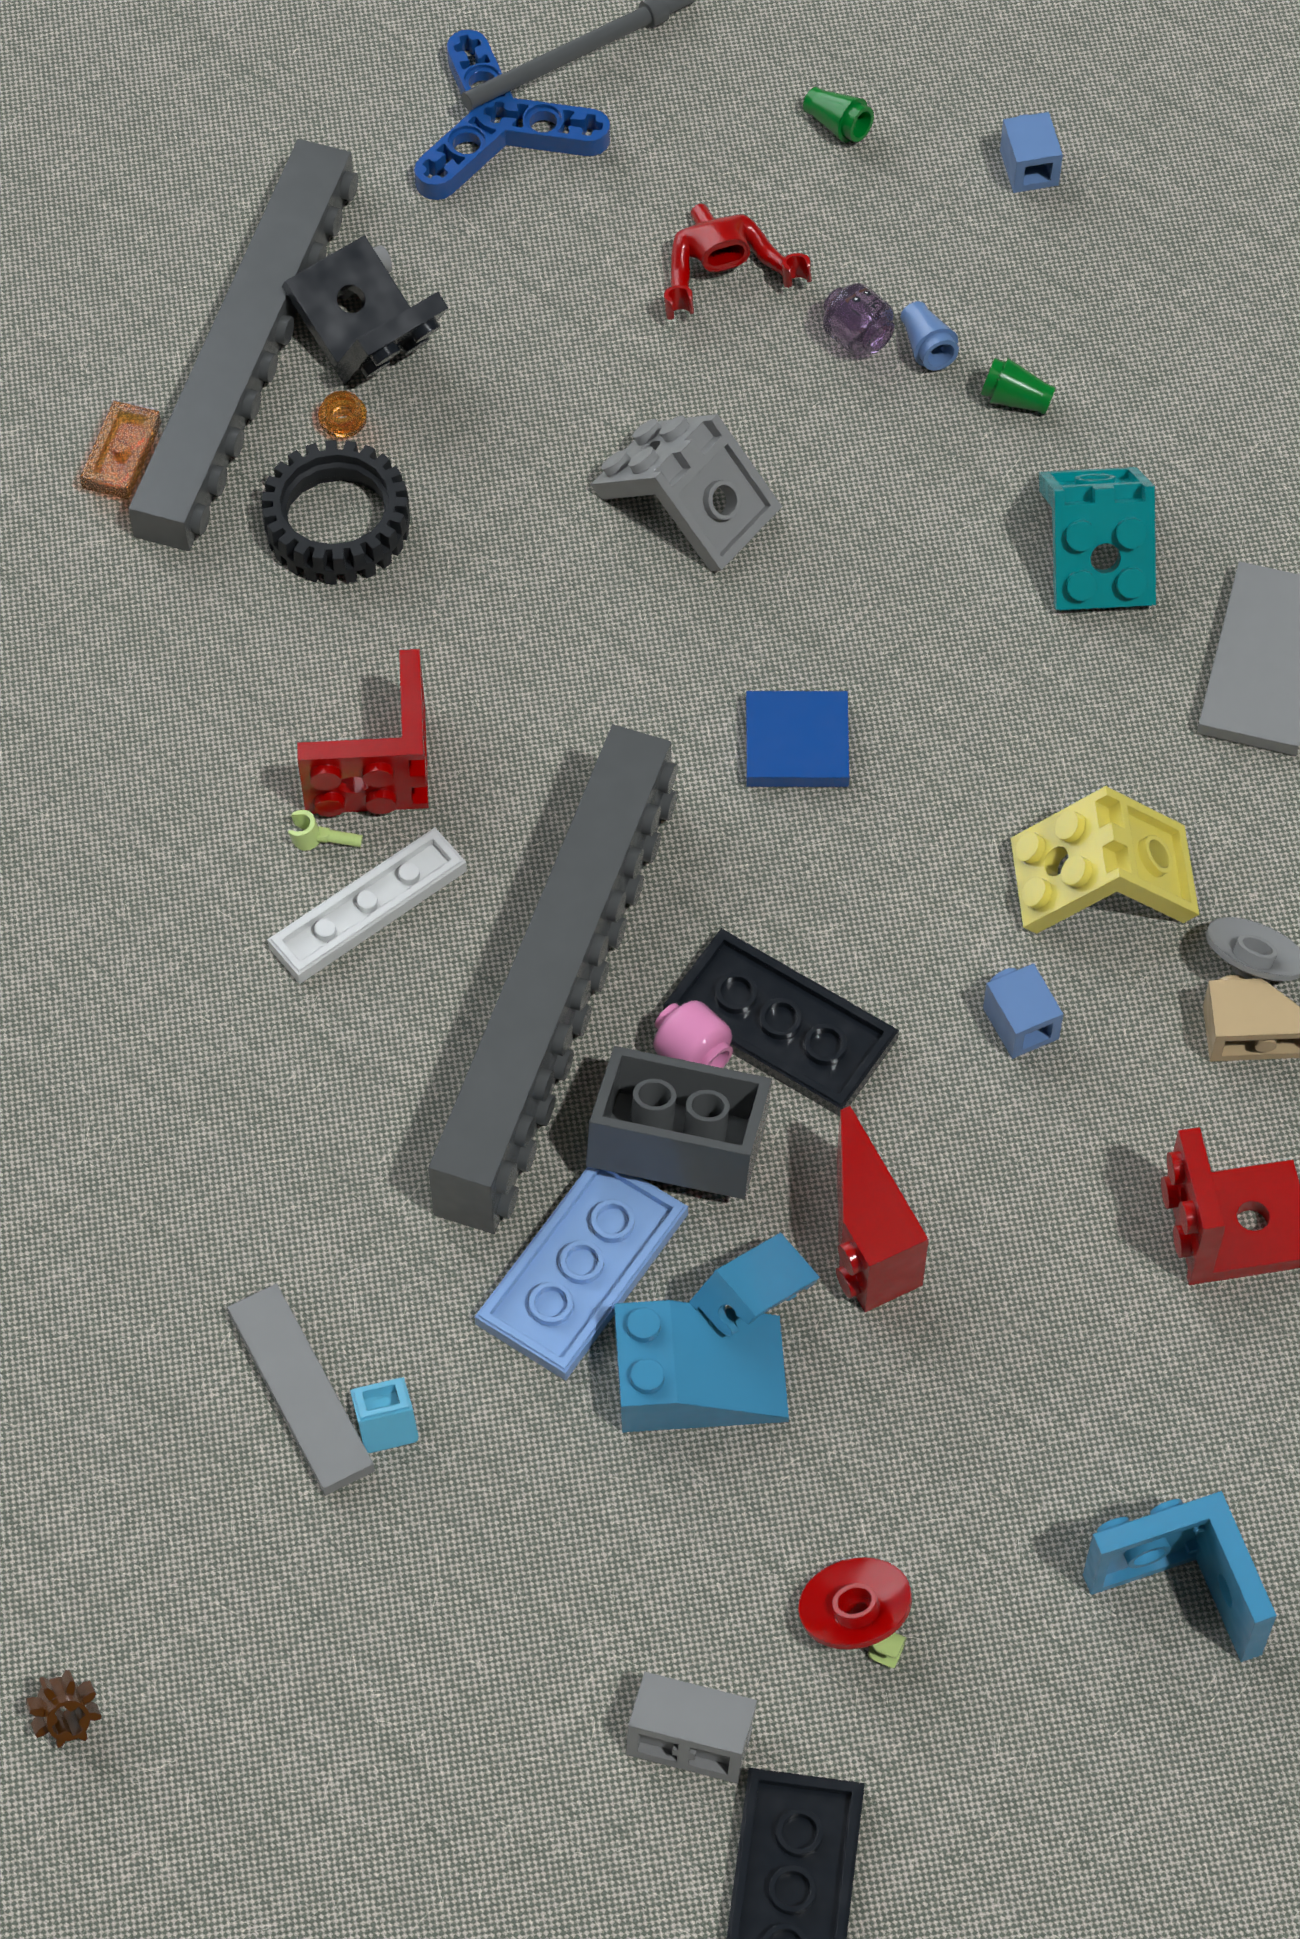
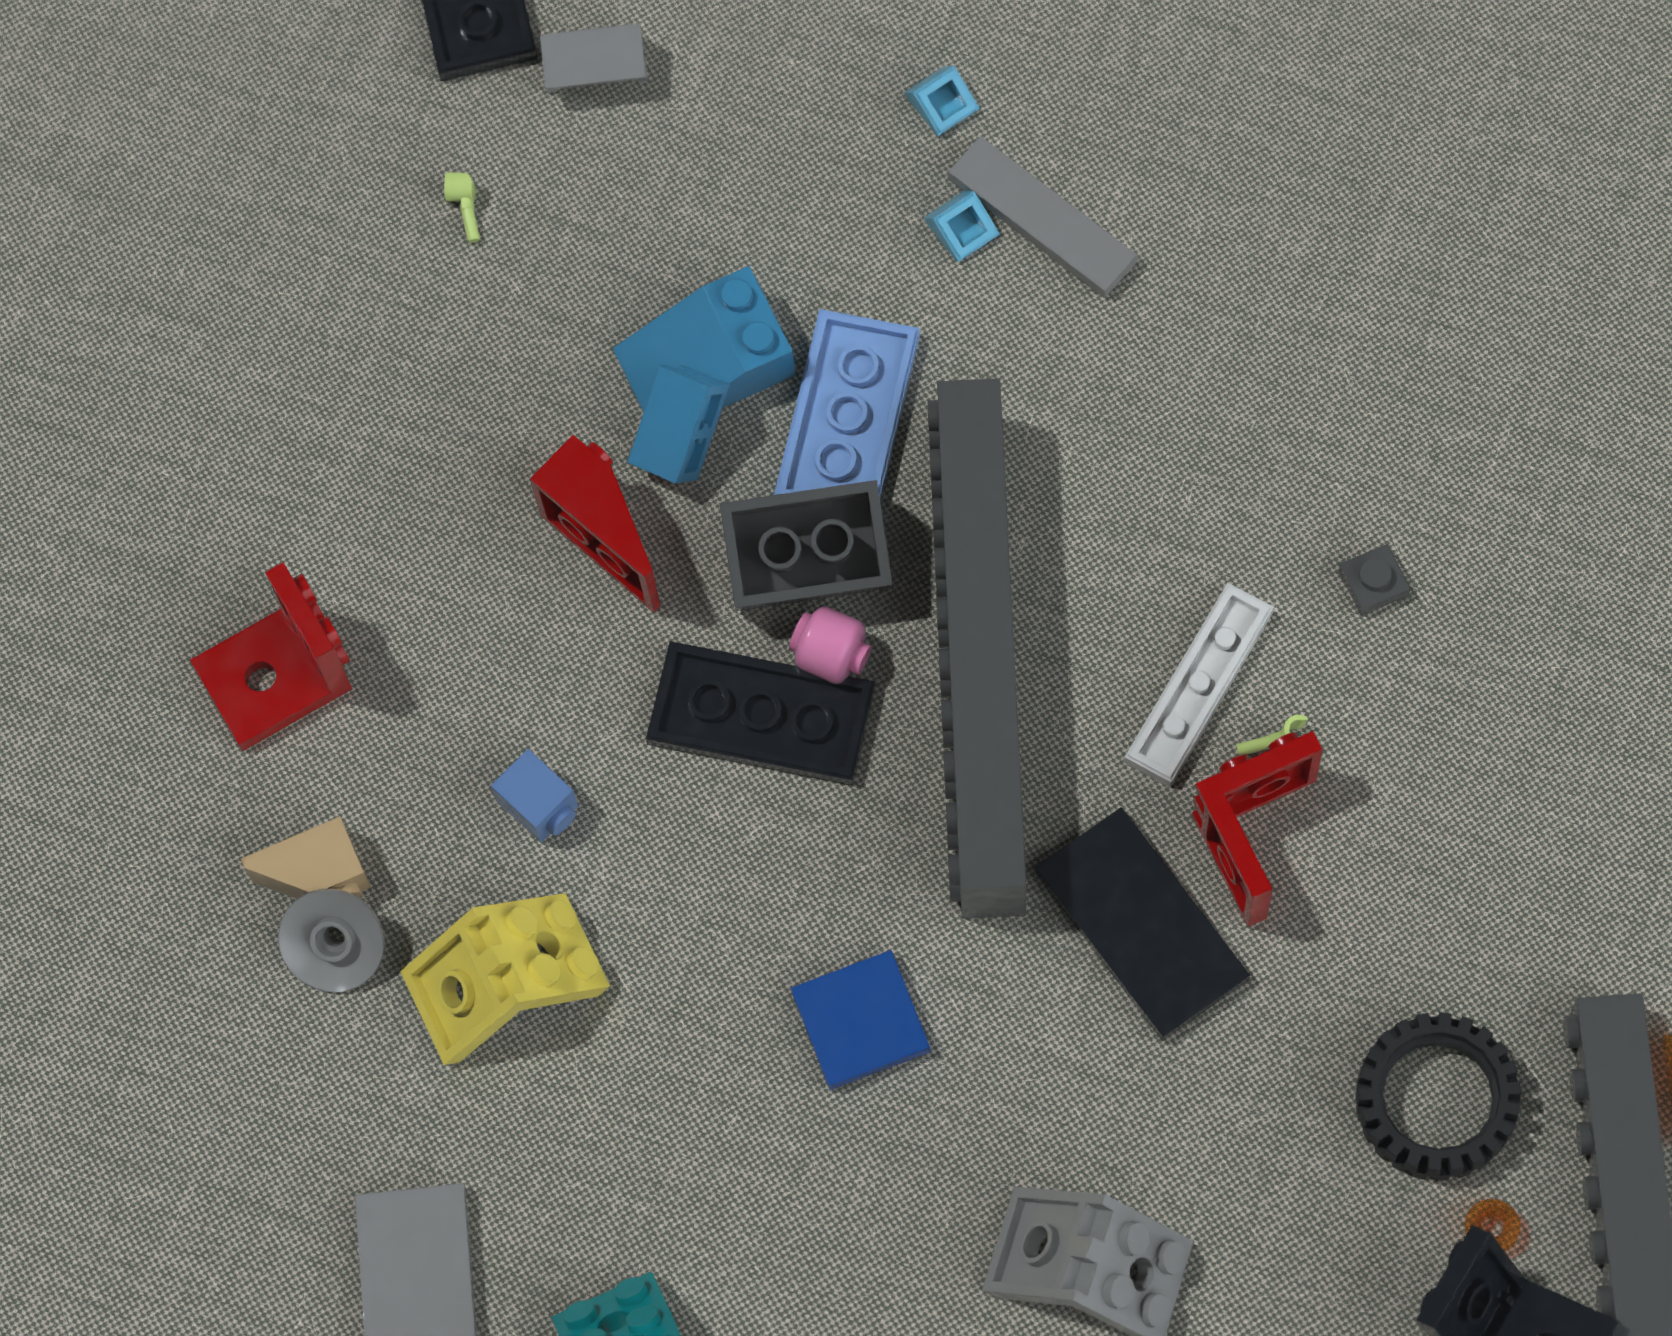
camera: 165 degrees right, 10 degrees up
(163, 936) = (1374, 579): none -> dark grey plate
(343, 1556) = (942, 99): none -> medium azure slope
(516, 730) = (1142, 924): none -> black tile
(855, 1603) = (517, 192): red dish -> none
(1178, 1535) = (241, 335): dark azure bracket -> none

